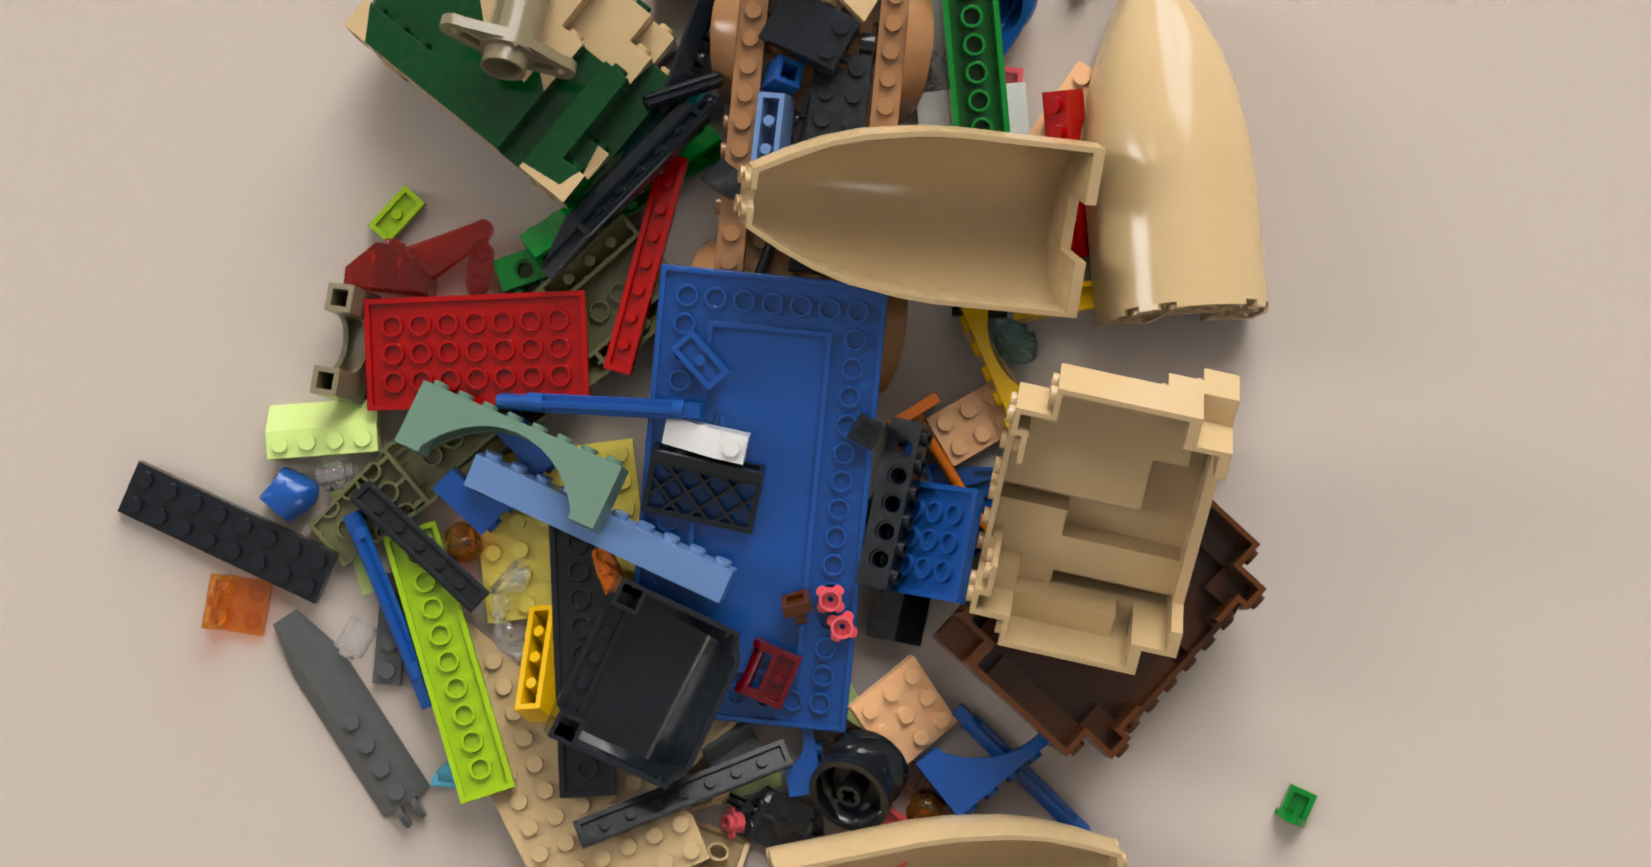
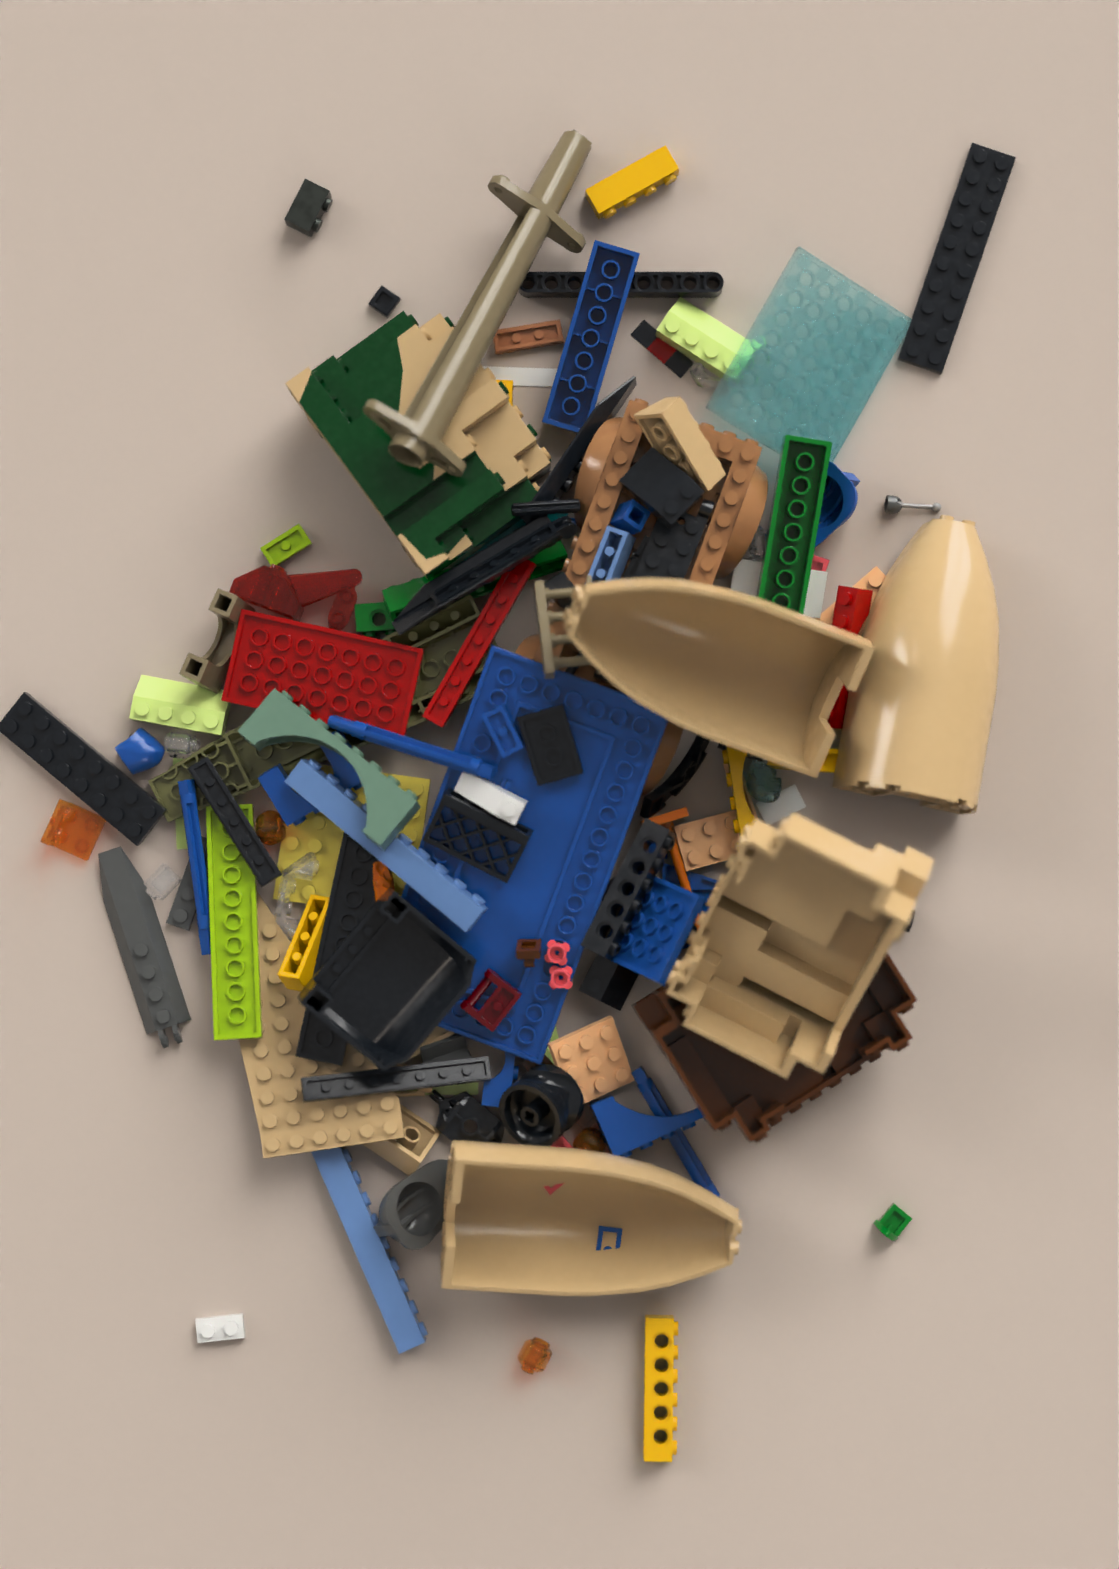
camera: 15 degrees right, 0 degrees up
(443, 777) = (205, 1014): medium azure tile -> none
(726, 240) = (548, 641): none -> dark tan fence
(733, 822) = (430, 1113): coral plate -> none
(759, 361) = (550, 744): none -> black tile
(866, 431) = (622, 824): black plate -> none
(917, 363) = (677, 780): none -> black tile
(1048, 360) = (788, 802): none -> white sticker

